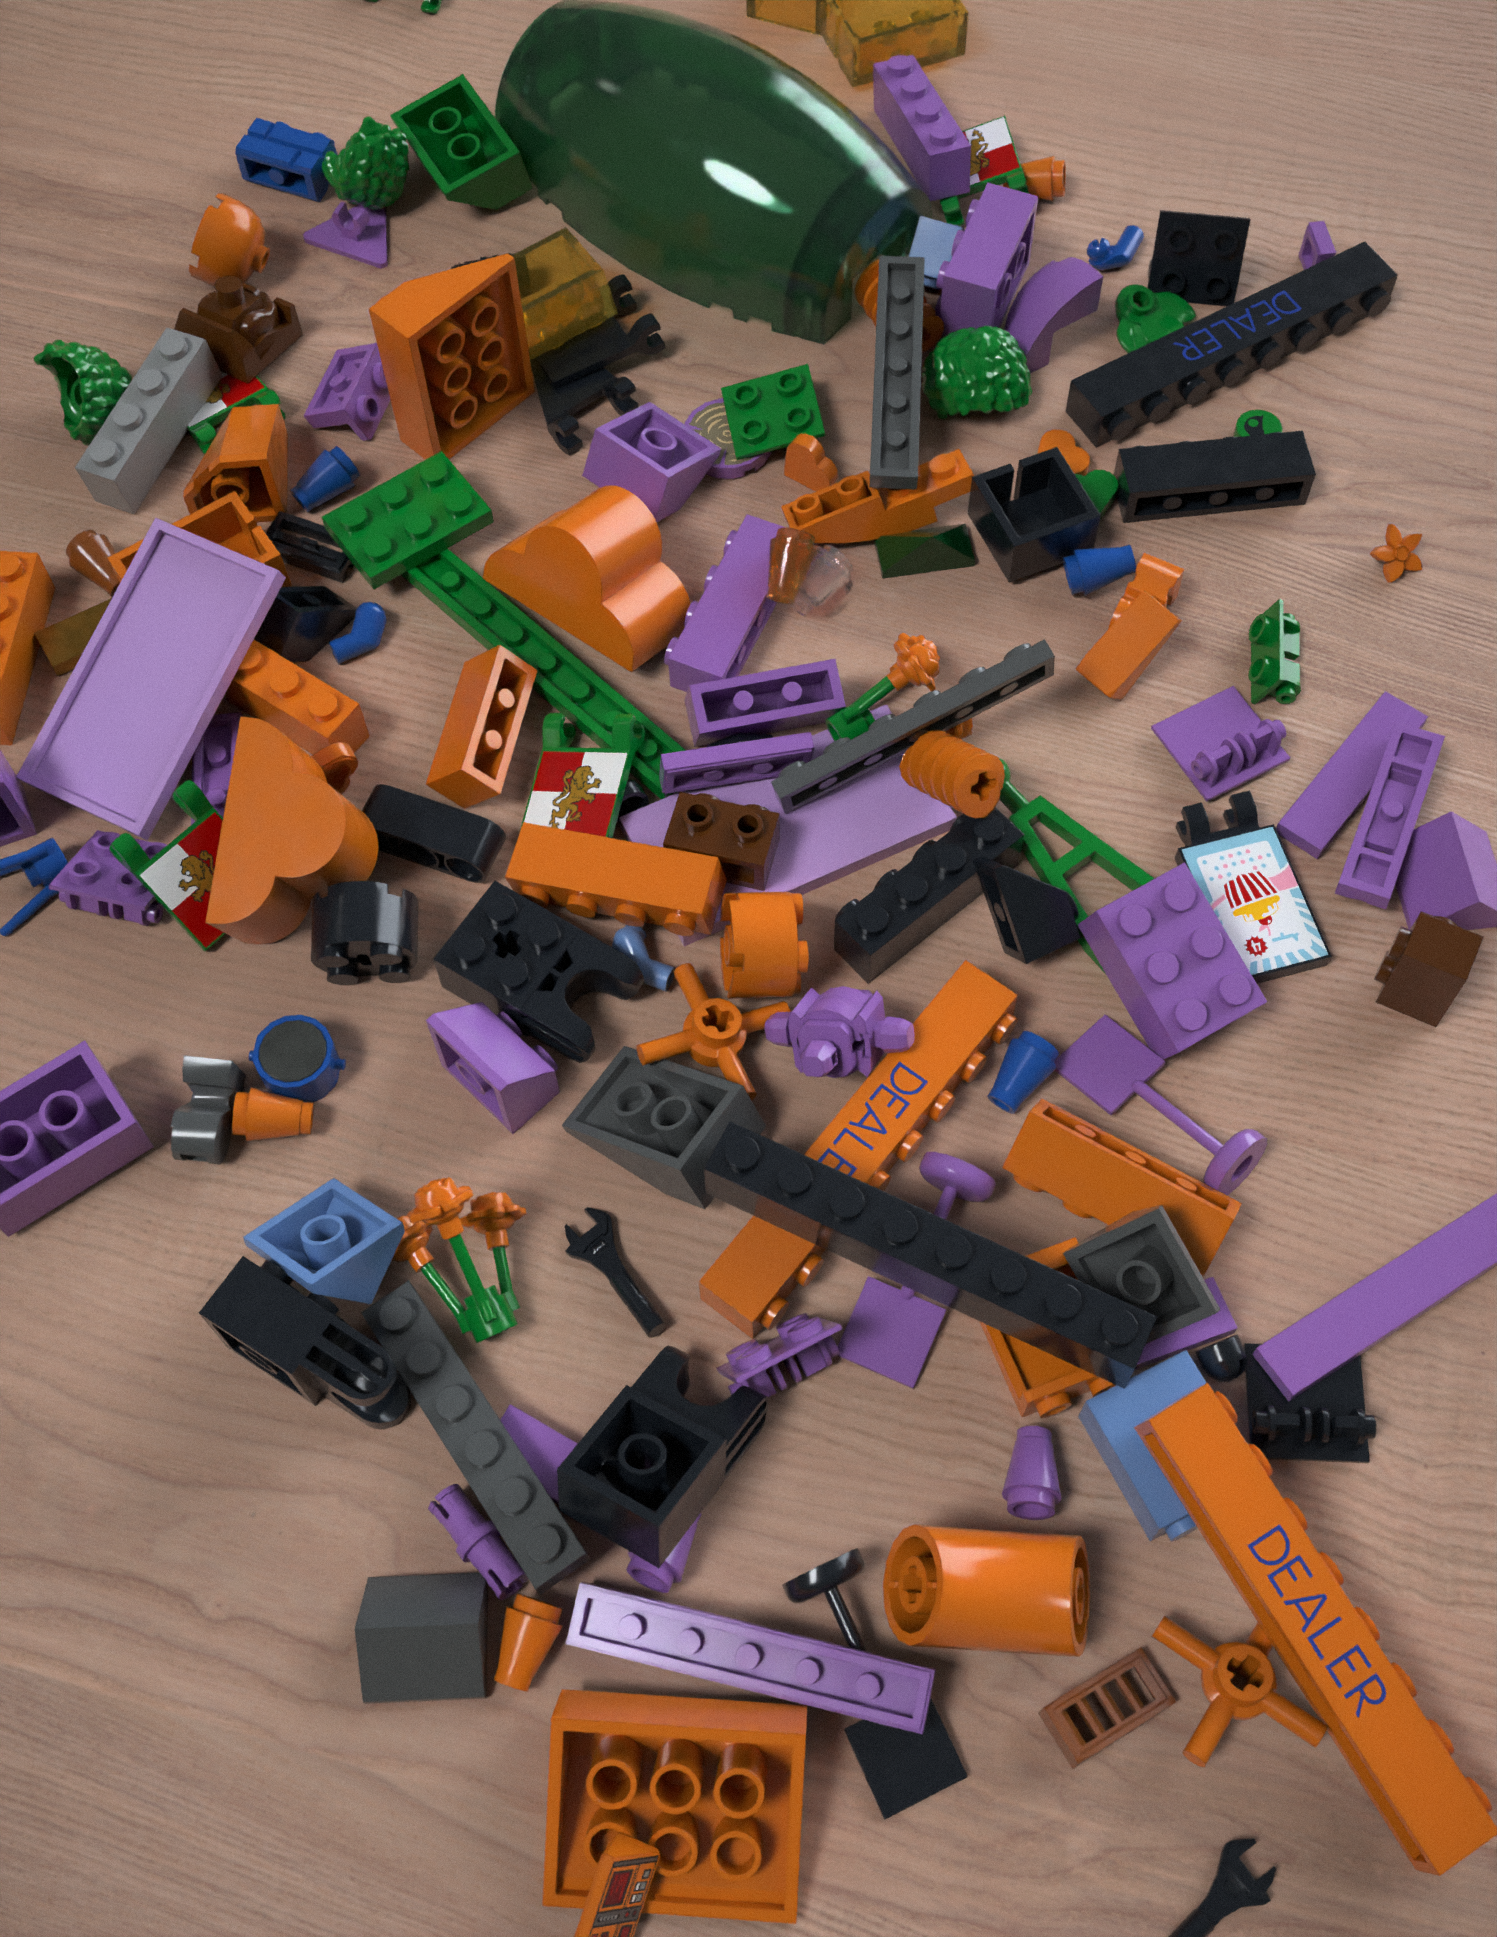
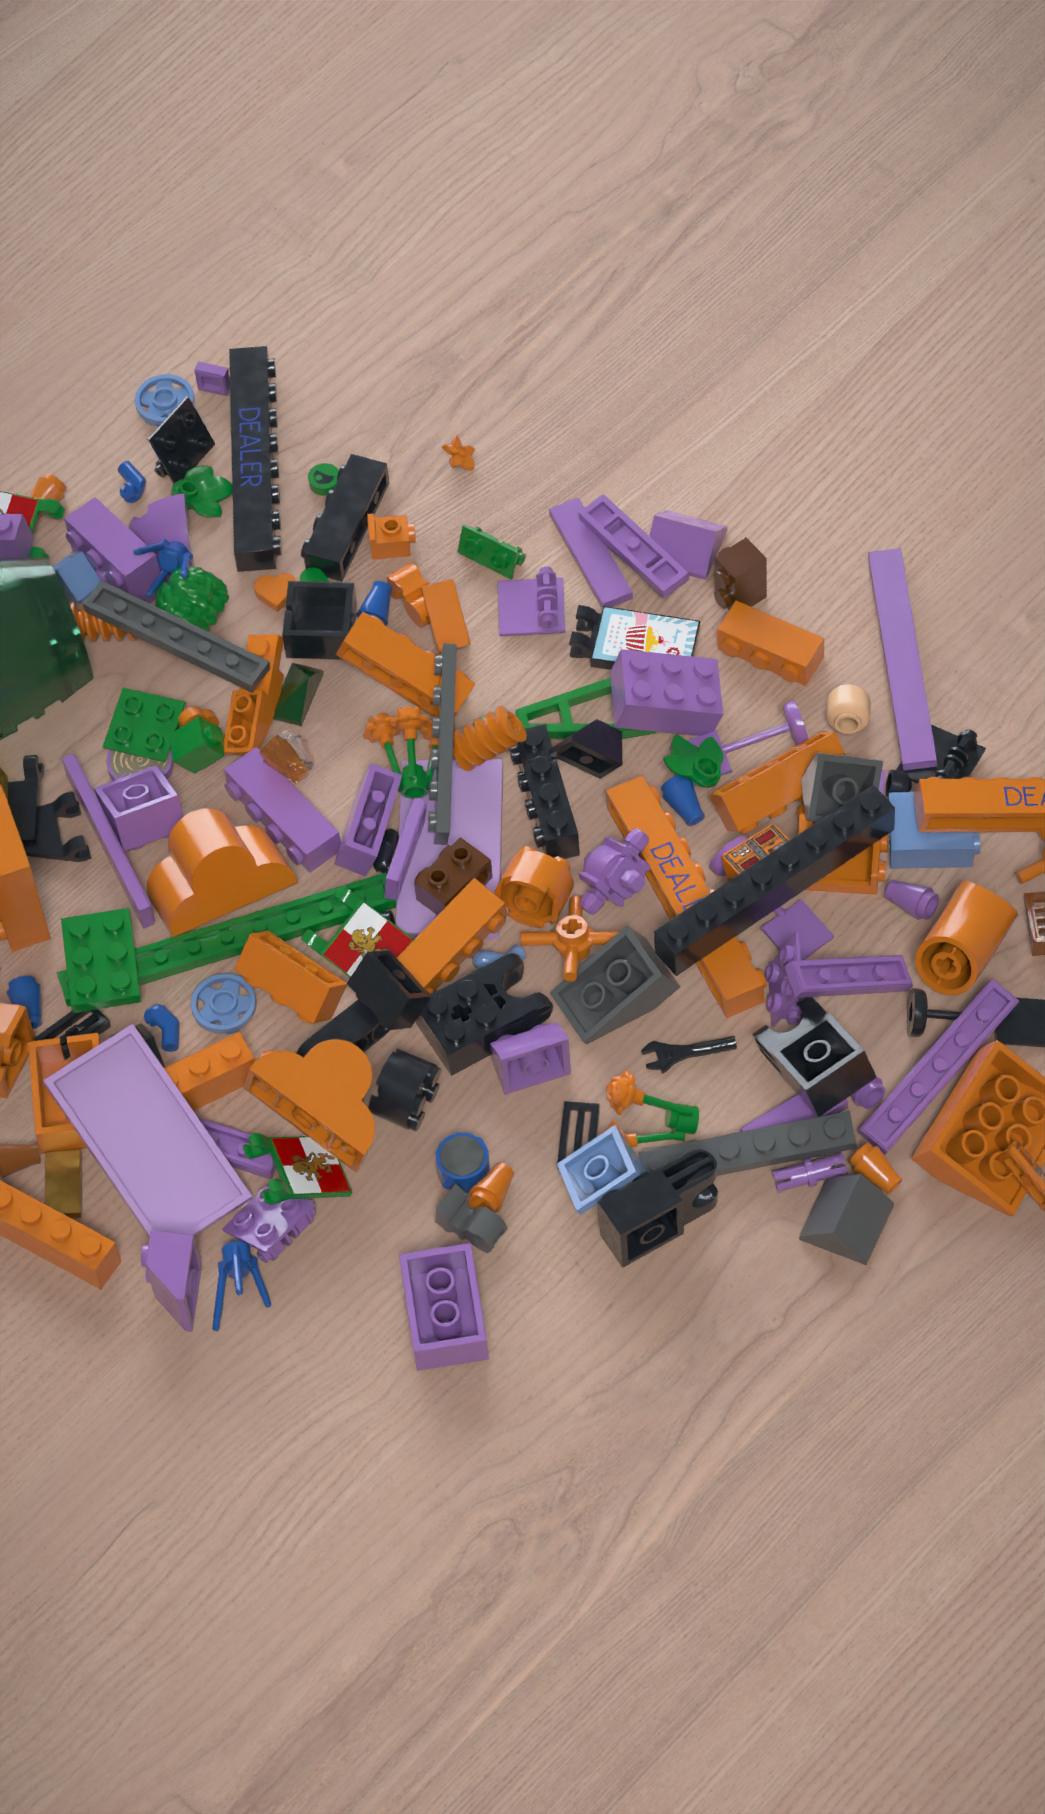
camera: 60 degrees left, 5 degrees down
(405, 1170) = (581, 1107): none -> black tile
(421, 682) = (223, 1004): none -> medium blue wheel
(489, 837) = (388, 990): none -> black brick
(564, 478) = (108, 841): none -> medium lavender tile
(772, 474) = (197, 745): none -> green brick
(821, 1440) = (848, 976): none -> medium lavender tile
(969, 1203) = (752, 850): none -> slope
(1010, 316) = (171, 557): none -> blue plant
(1011, 615) = (398, 663): none -> orange brick
(1094, 1051) = (694, 762): none -> green plate
(1216, 534) = (390, 536): none -> orange brick
(1264, 235) = (163, 399): none -> medium blue wheel
(1308, 1224) = (848, 709): none -> light nougat head
(1351, 1066) = (770, 643): none -> orange brick

